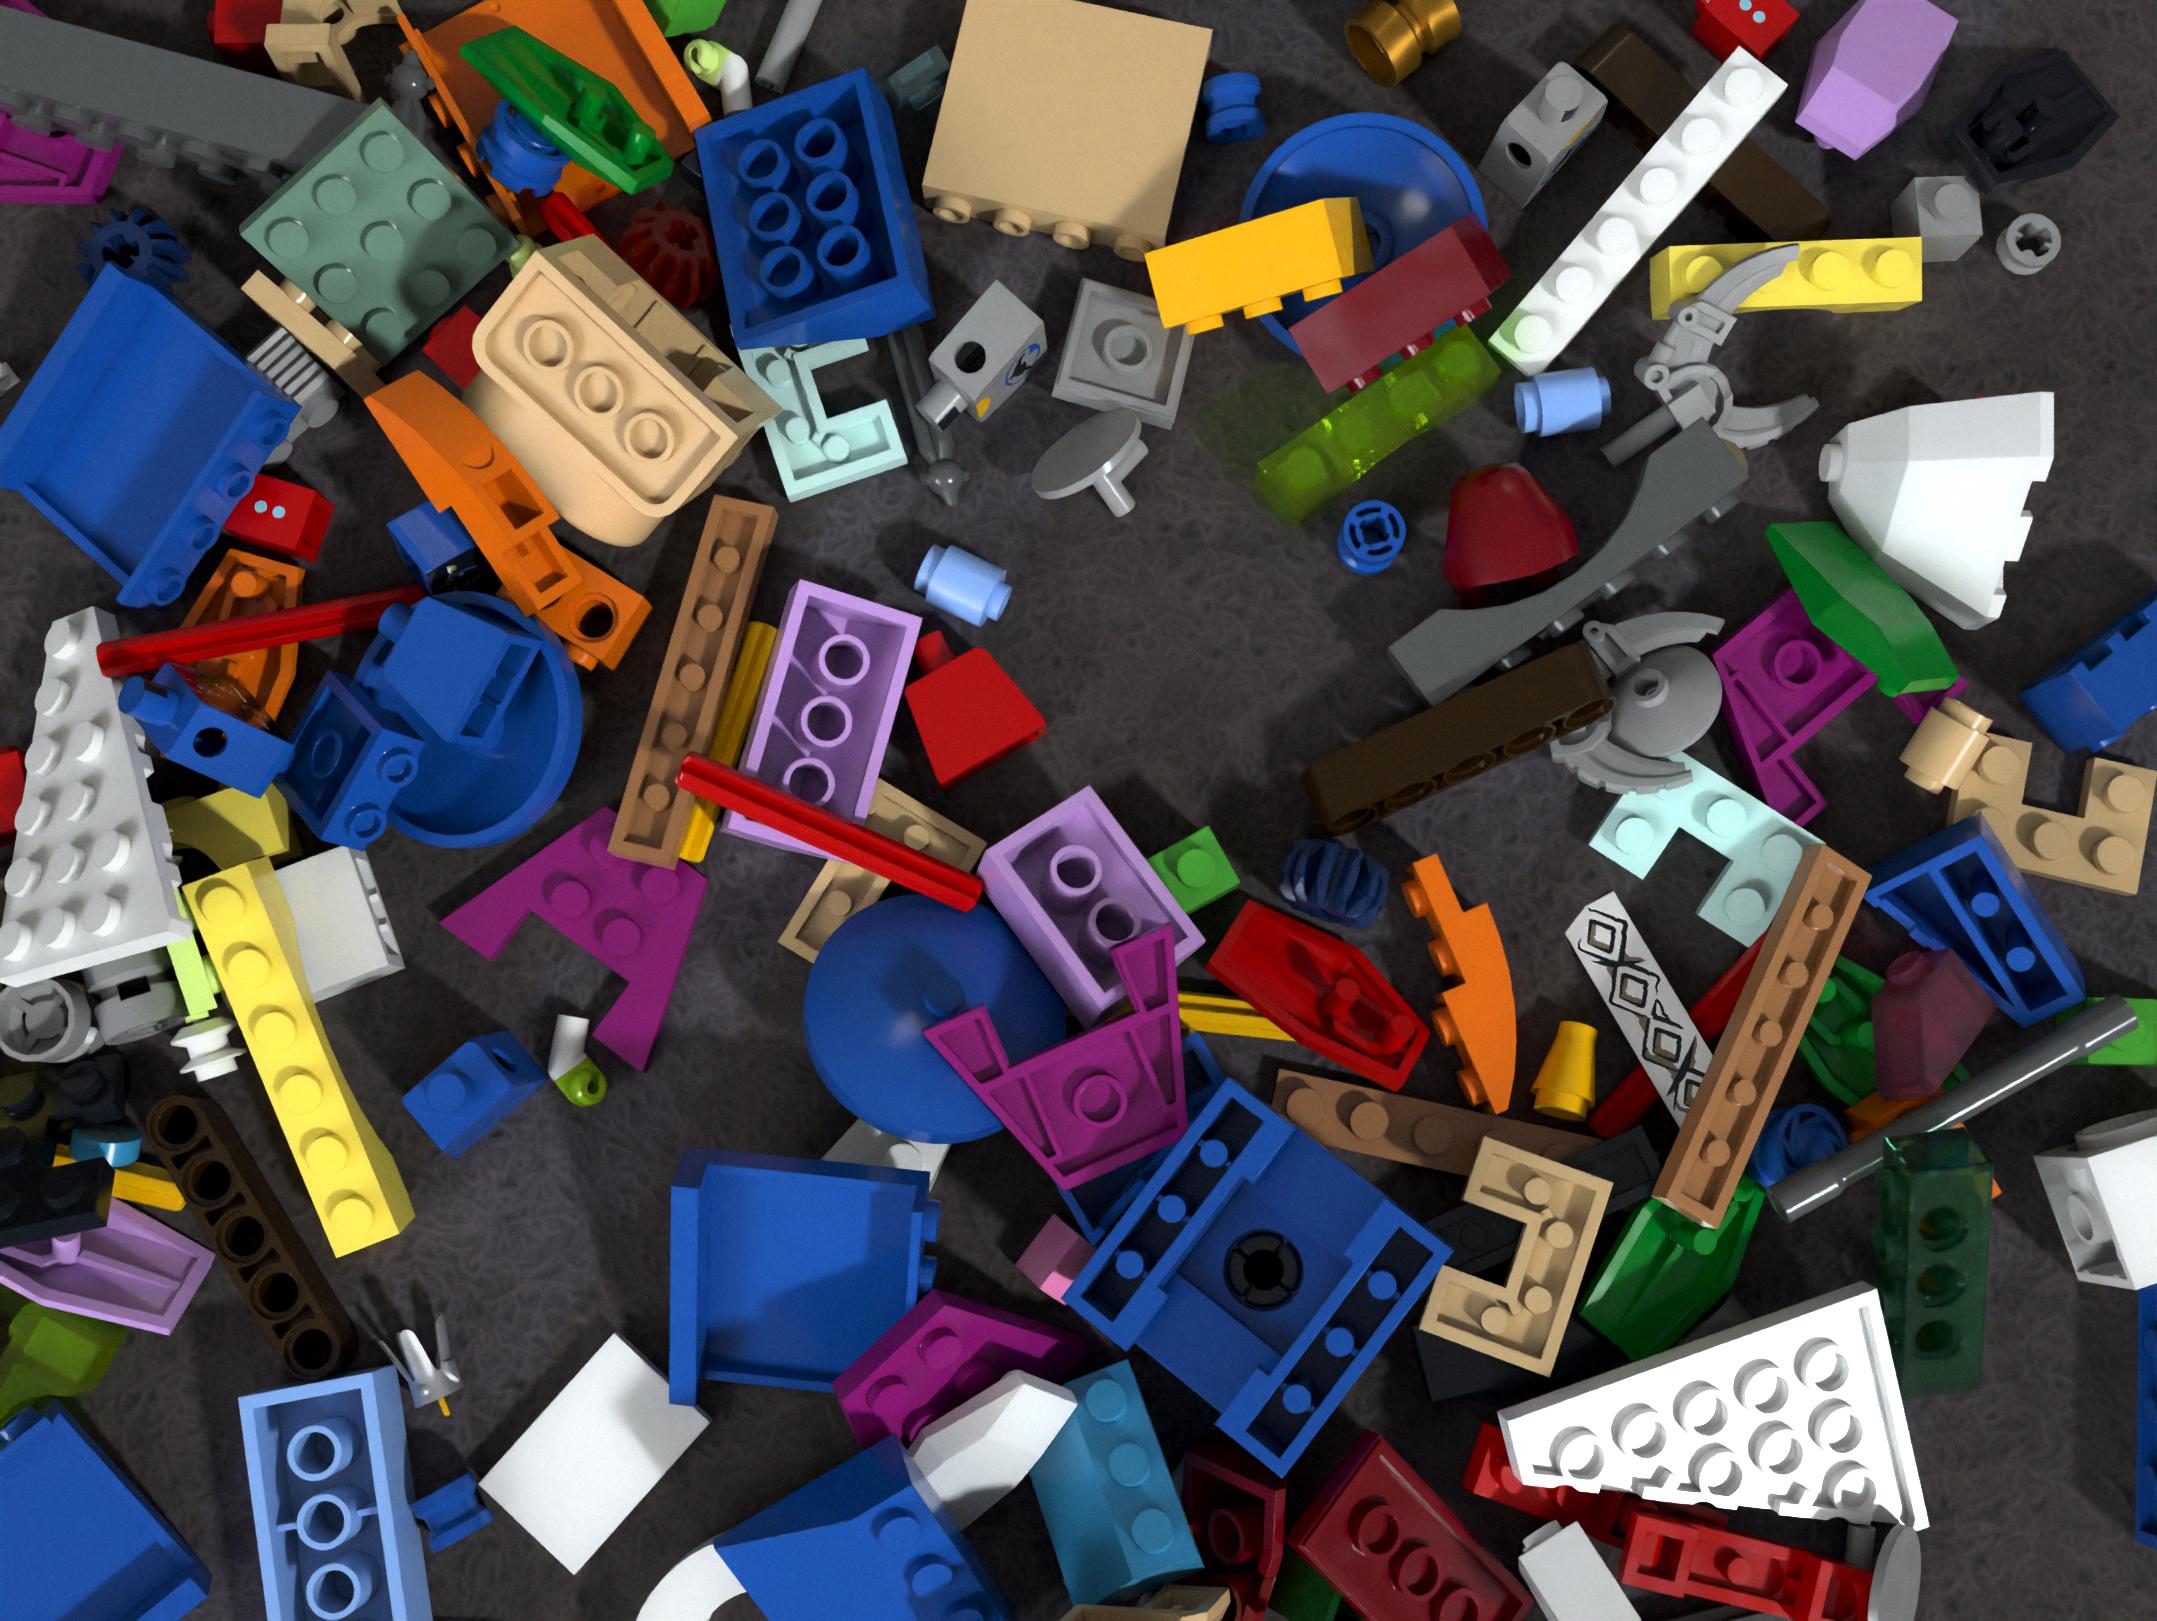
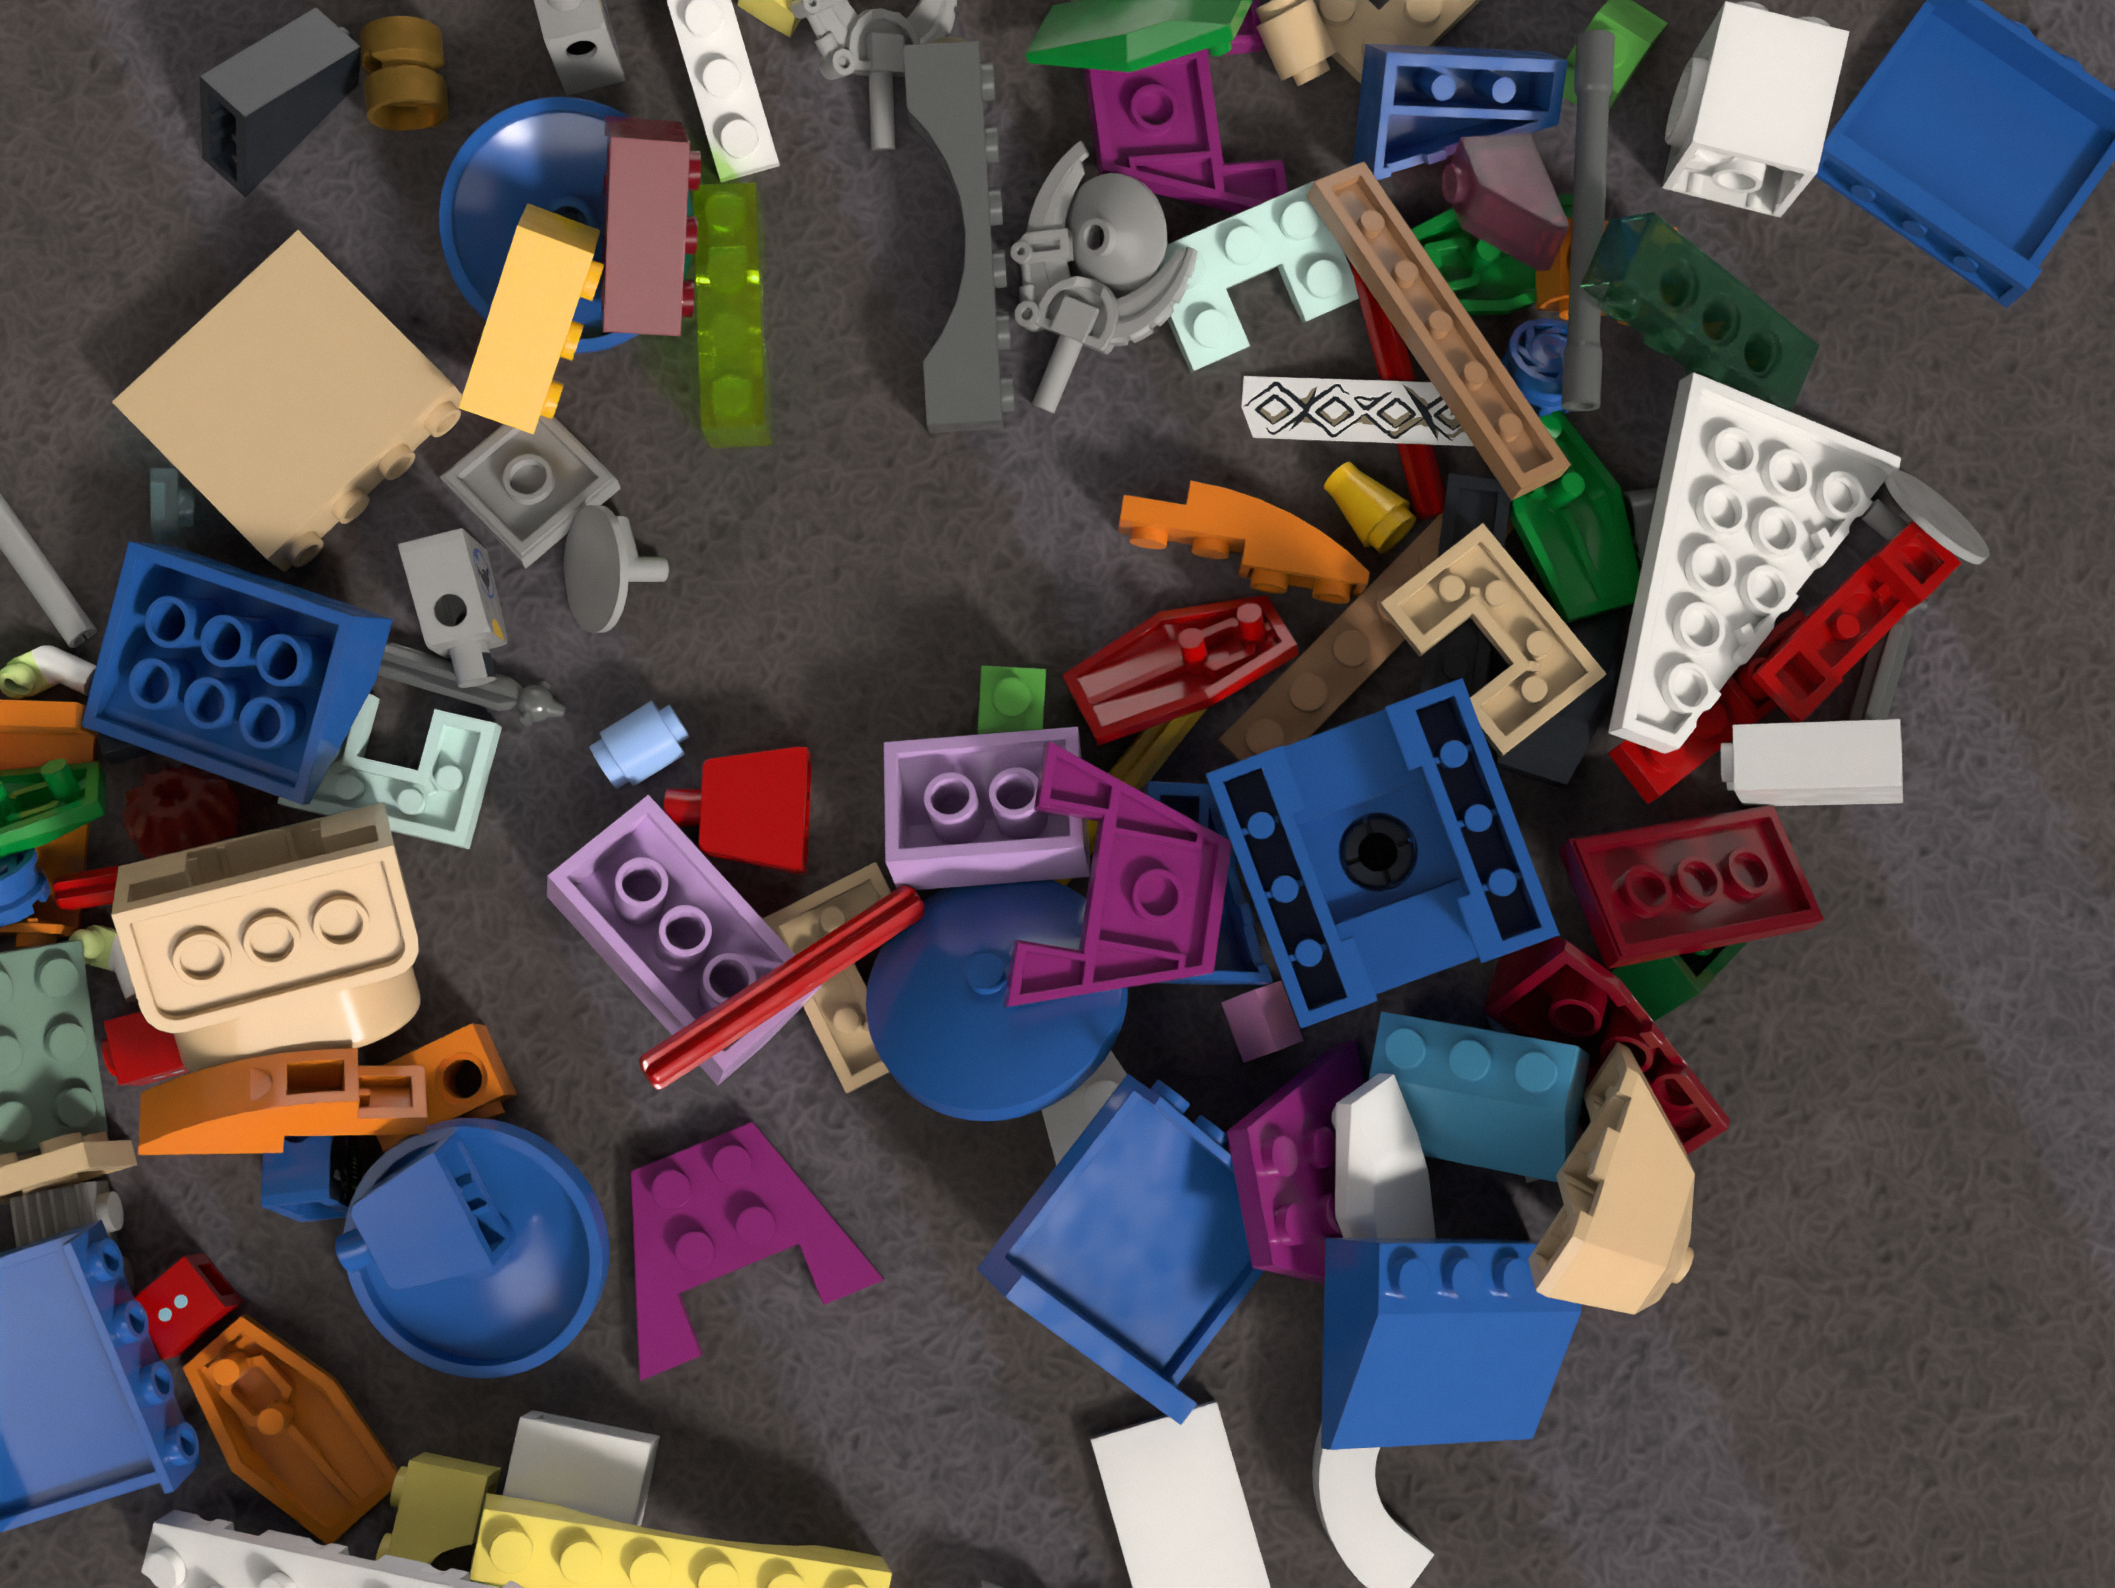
camera: 60 degrees left, 0 degrees up
(186, 721) = (309, 1486): blue torso -> none
(250, 632) = (274, 1389): red axle -> none
(347, 763) = (447, 1375): blue plate -> none
(473, 1091) = (808, 1435): blue torso -> none
(571, 1067) = (838, 1340): arm -> none
(693, 679) = (572, 1026): medium nougat plate -> none
(731, 729) = (638, 1030): yellow axle -> none
(1233, 108) = (377, 258): blue wheel -> none
(1333, 883) = (1094, 595): dark blue gear -> none
(1363, 549) = (828, 394): blue wheel -> none
(1458, 739) = (1040, 418): dark brown beam -> none
(1503, 531) = (891, 269): dark red piece -> none
(1562, 402) = (812, 153): light blue brick -> none

